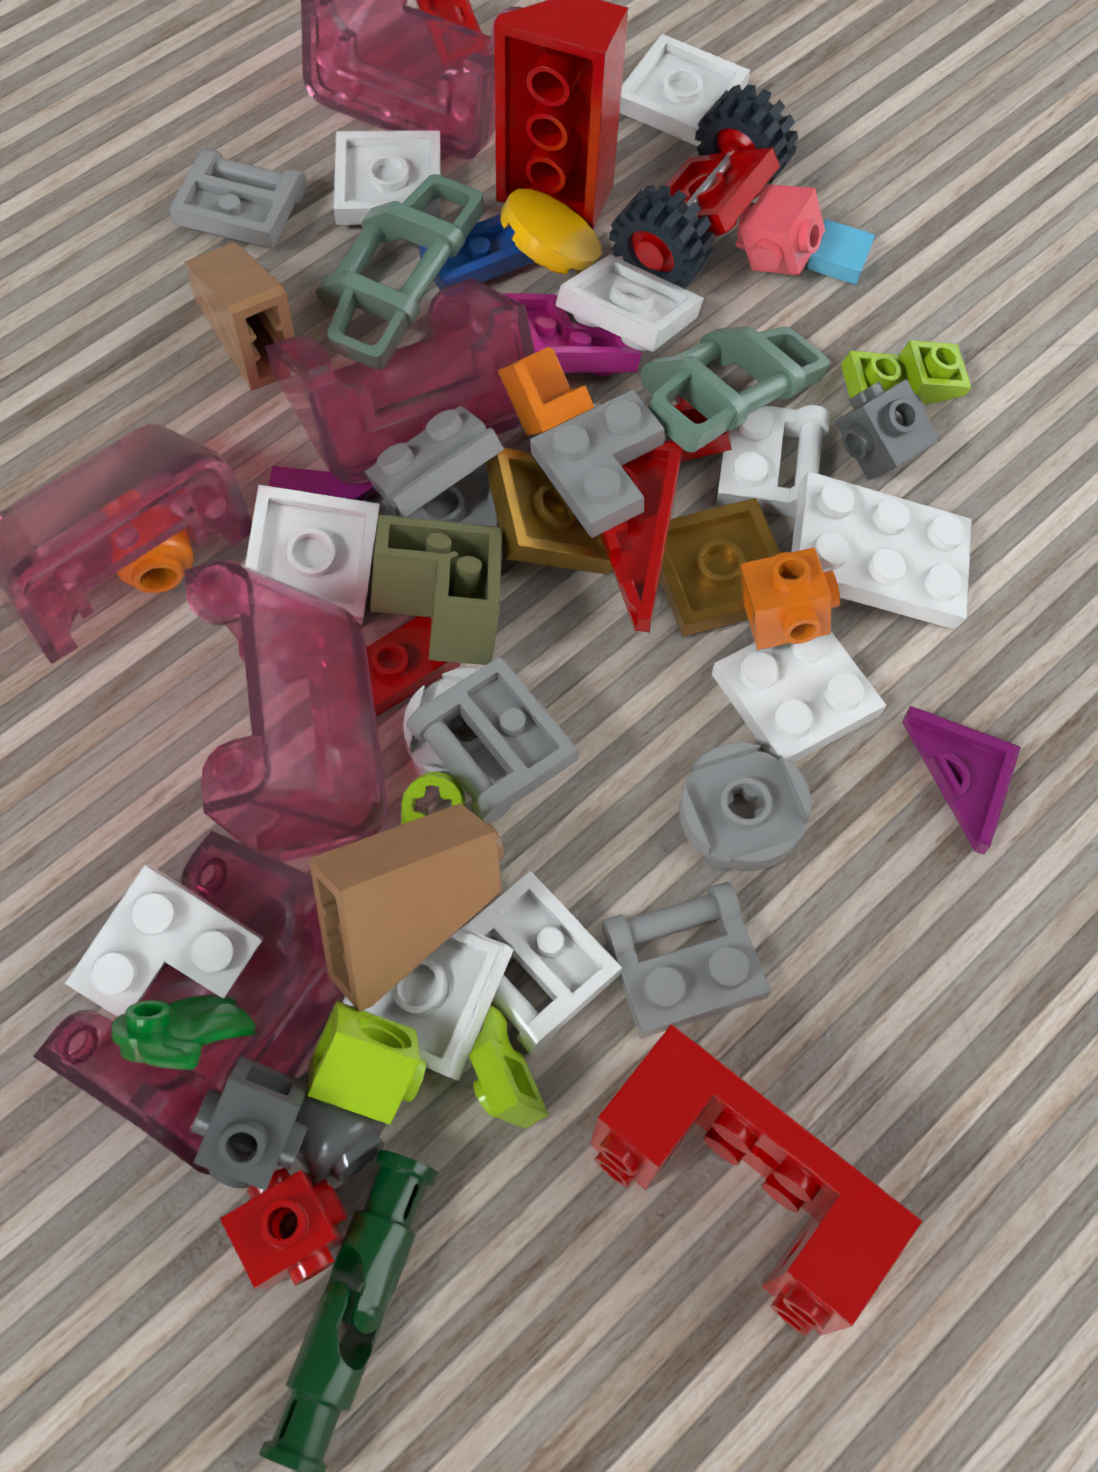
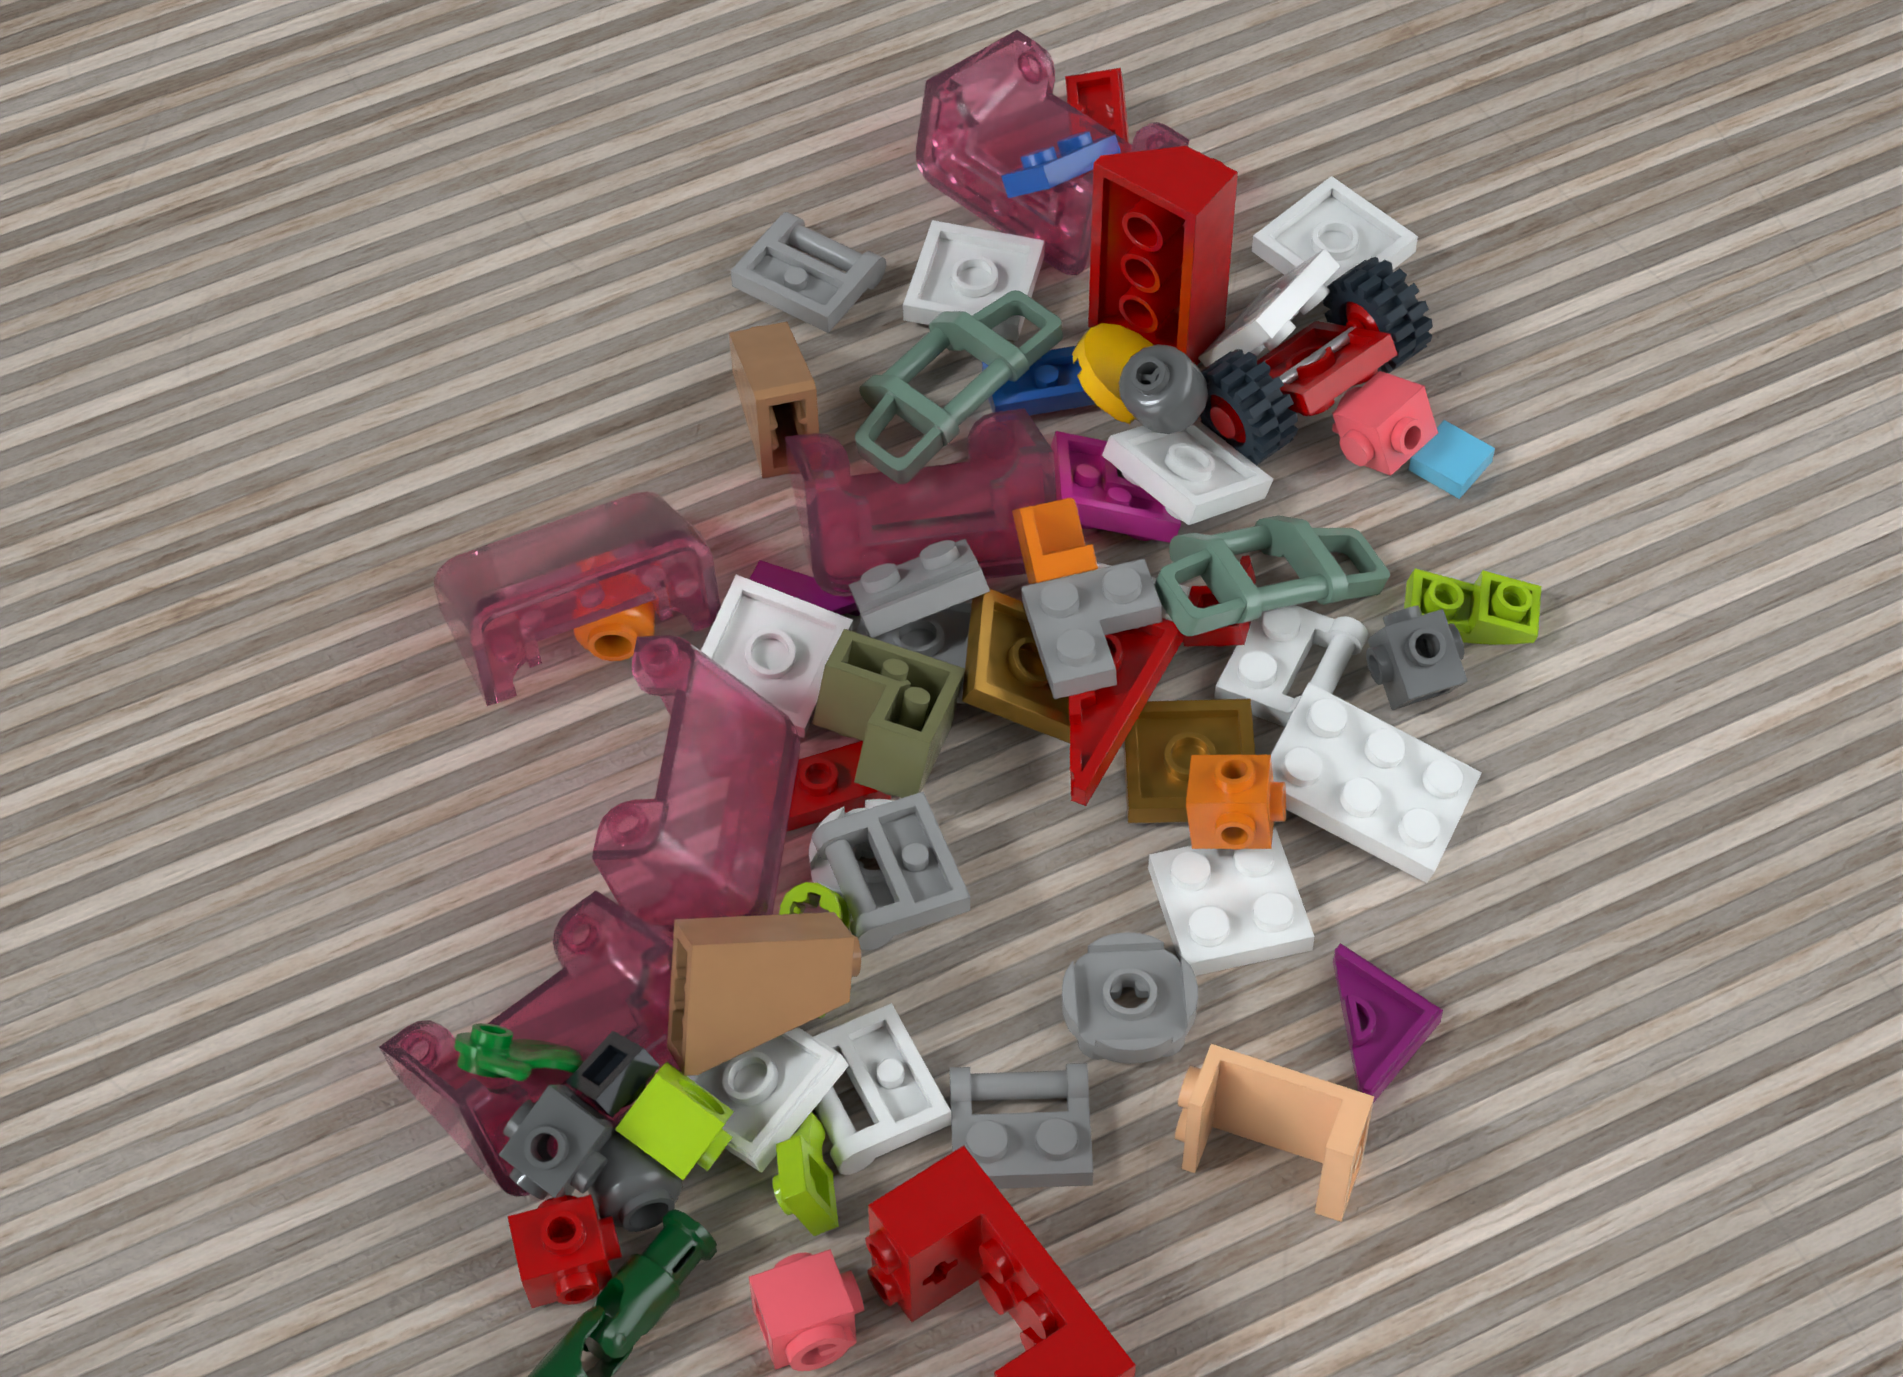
camera: 20 degrees right, 10 degrees down
(156, 926) = (520, 964): white plate -> none
(287, 1033) = (613, 1074): none -> black plate
(437, 56) = (1047, 169): none -> blue plate
(548, 1218) = (806, 1310): none -> coral brick
(596, 232) = (1163, 389): none -> dark grey head
(659, 150) = (1270, 314): none -> white plate
(995, 895) = (1278, 1111): none -> light nougat panel

